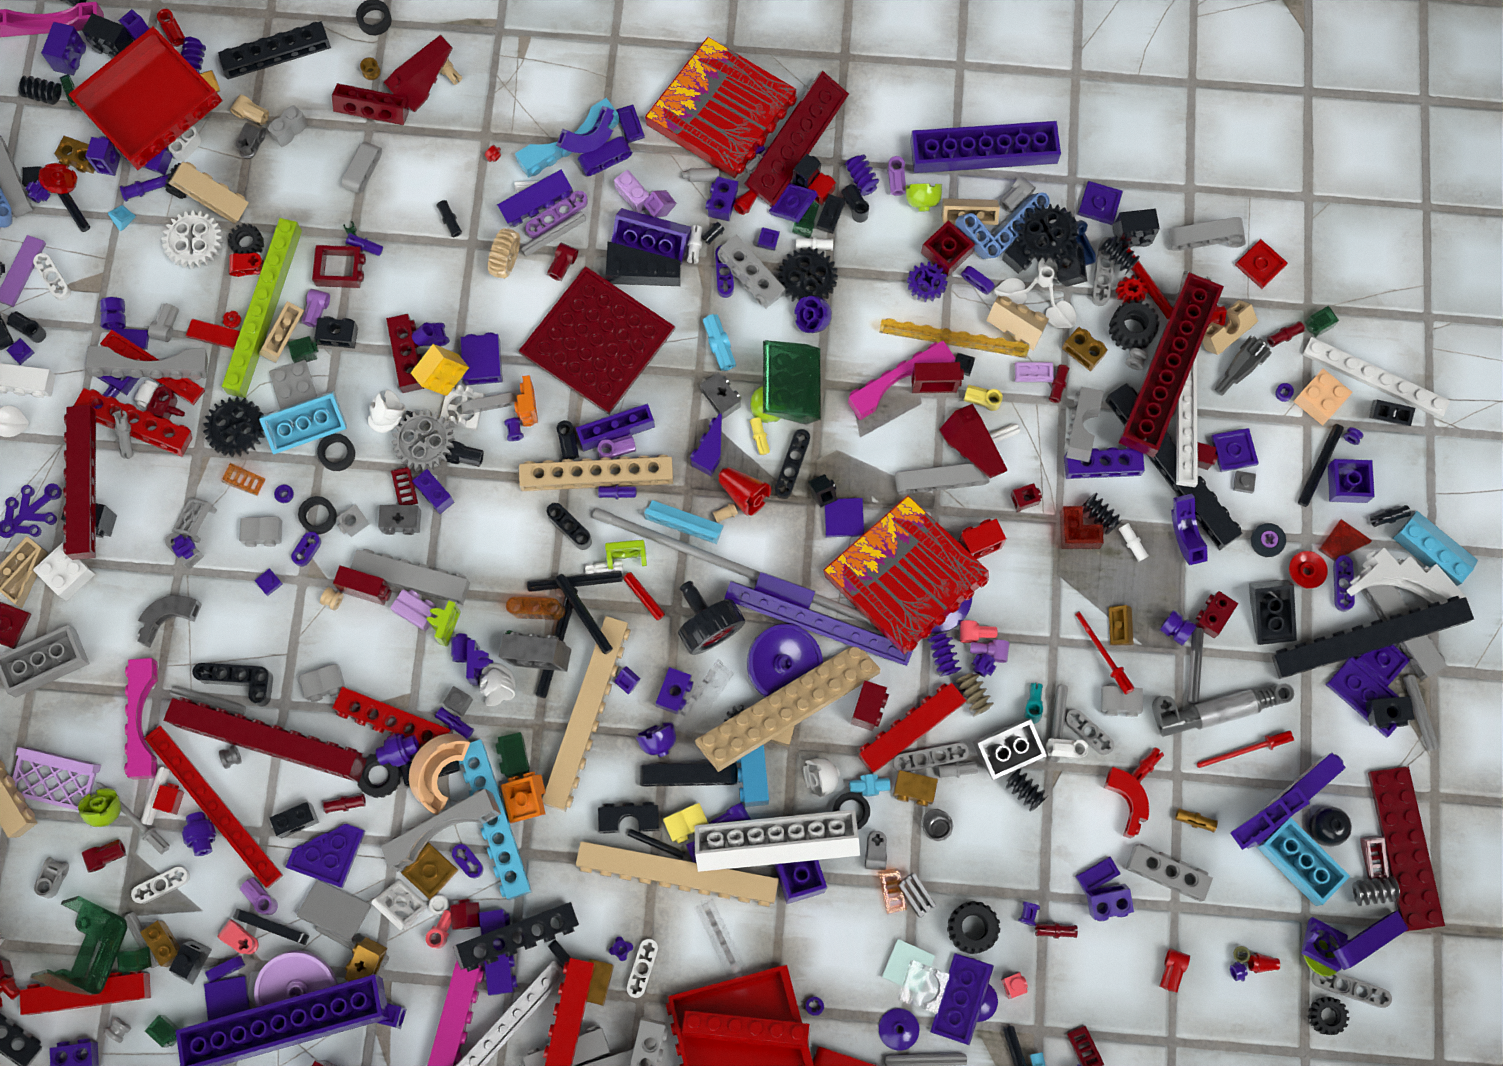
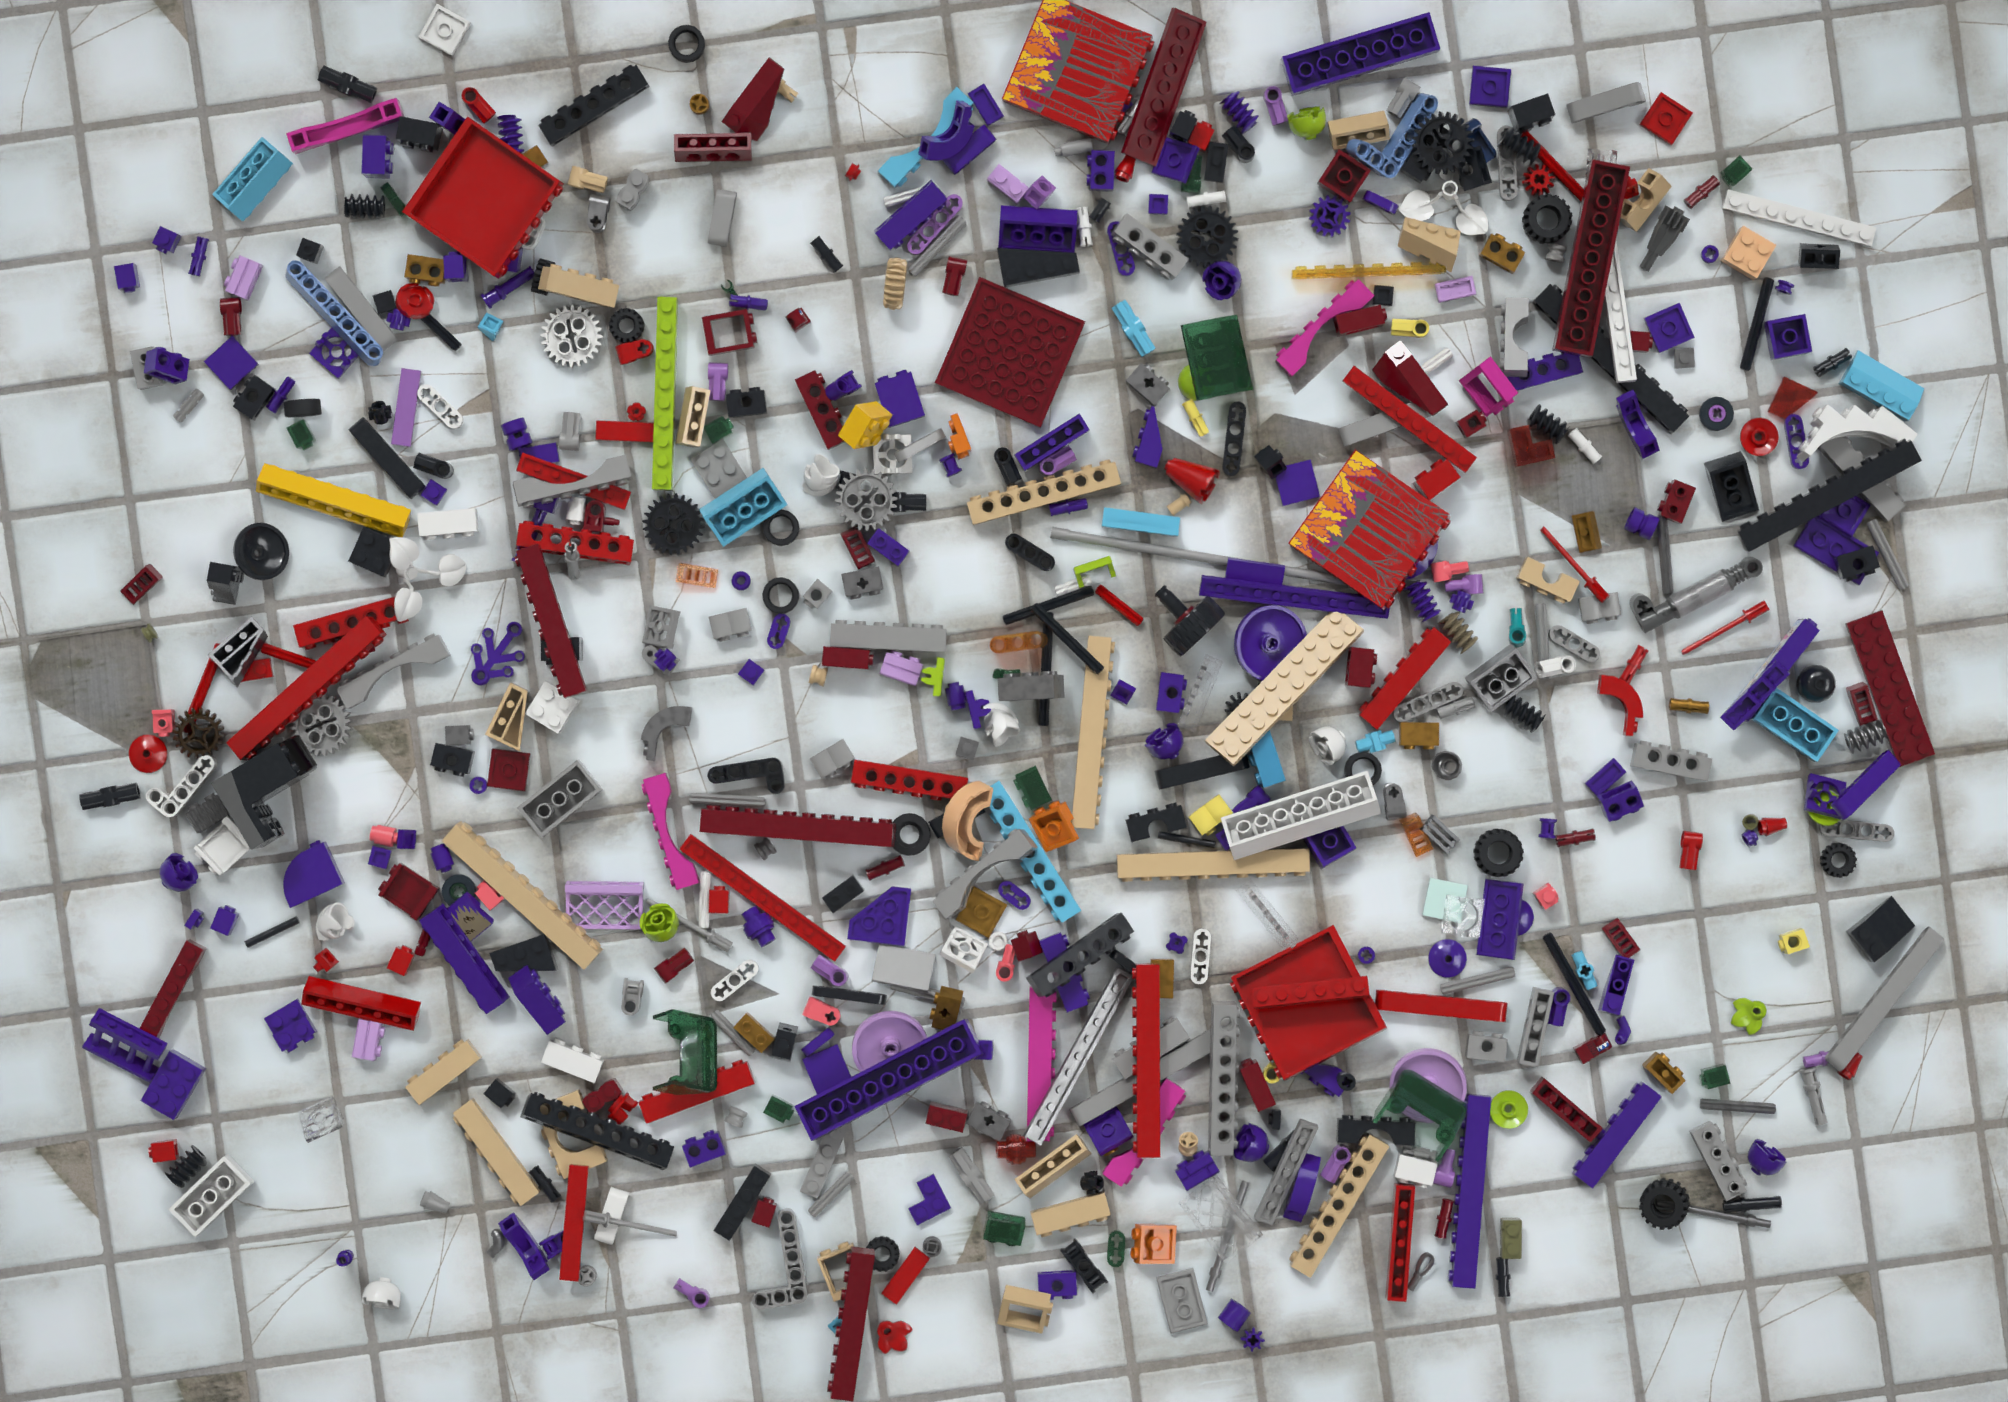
camera: 10 degrees left, 15 degrees up
(134, 959) = (733, 1052): clear green brick -> none
(397, 750) = (925, 809): dark purple piece -> none
(405, 267) = (798, 319): none -> dark red leg
(454, 723) = (968, 769): dark purple pin -> none
(966, 477) = (1409, 419): none -> red plate
(1039, 470) = (1480, 393): none -> dark pink window
(1059, 383) = (1482, 296): dark red pin -> none
(1059, 655) = (1531, 574): none -> tan arch

